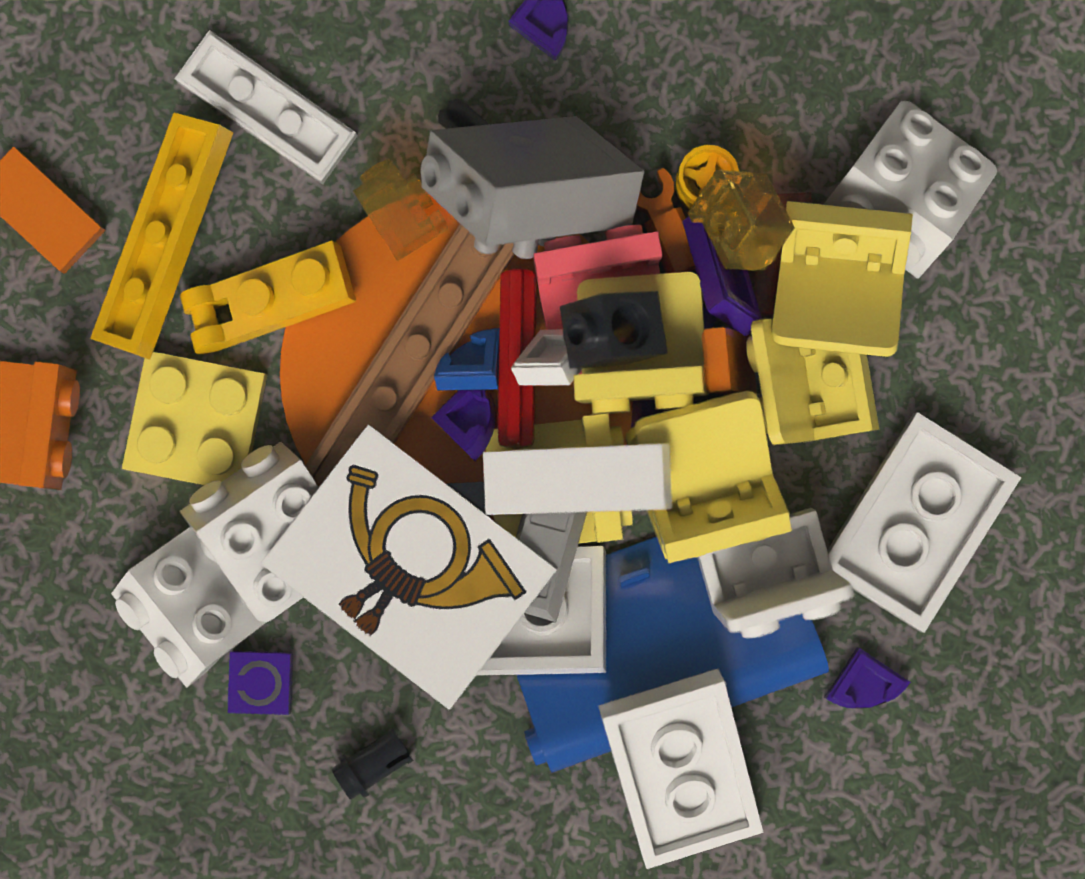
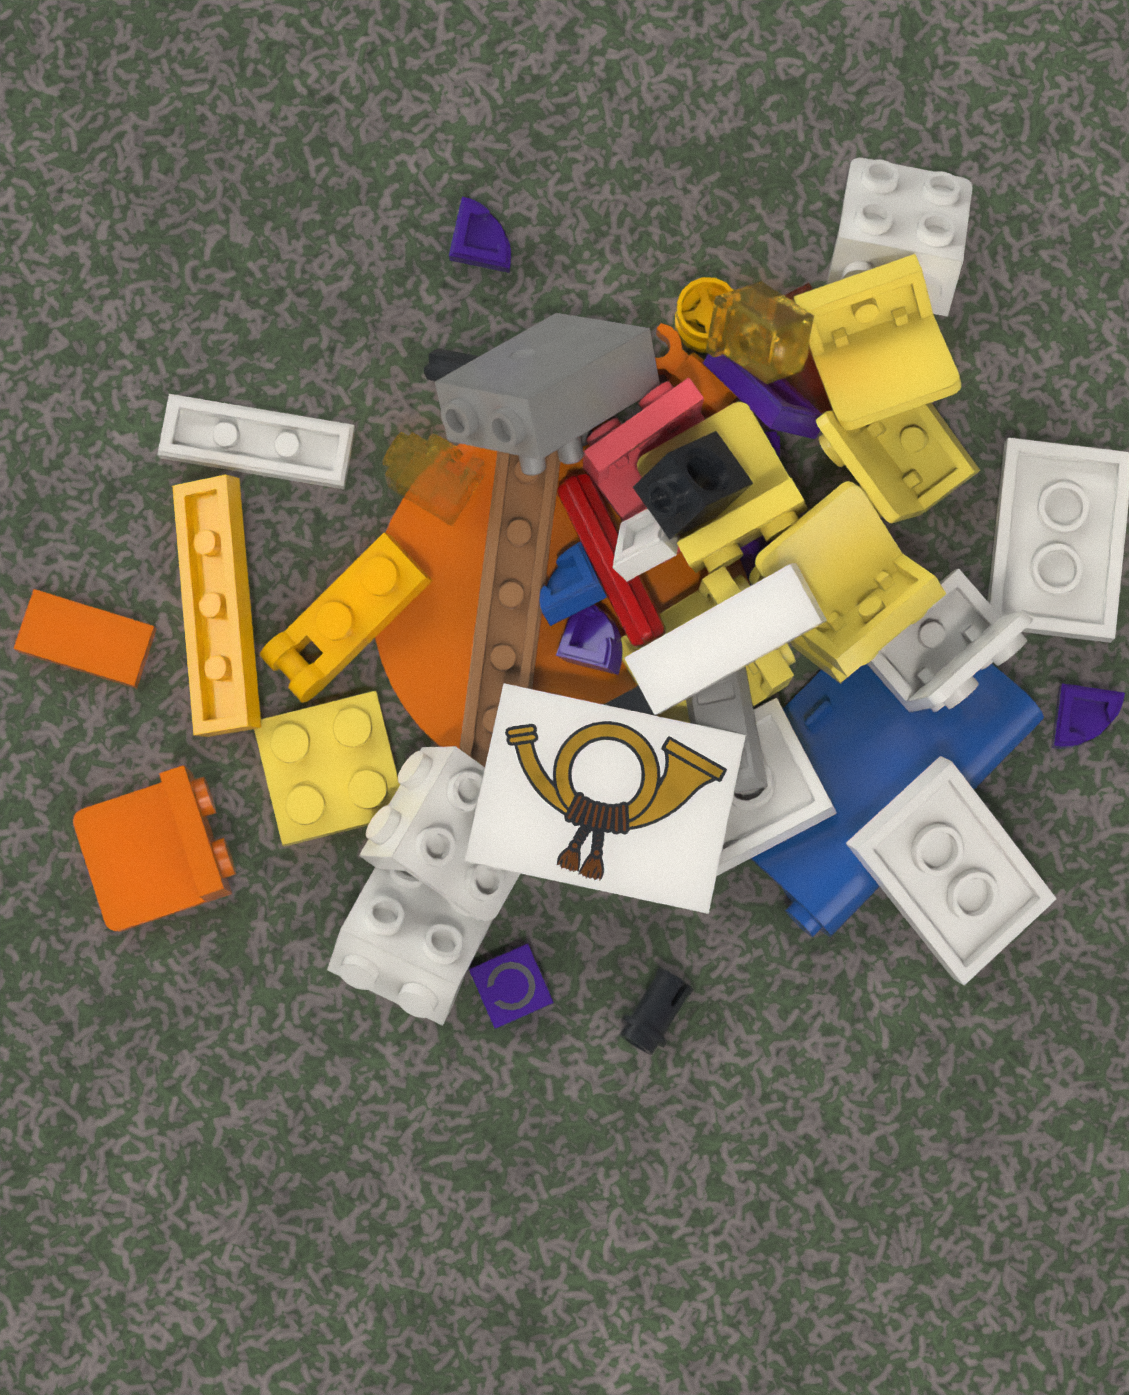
camera: 30 degrees left, 5 degrees down
(727, 362) = (808, 468): orange tile -> none

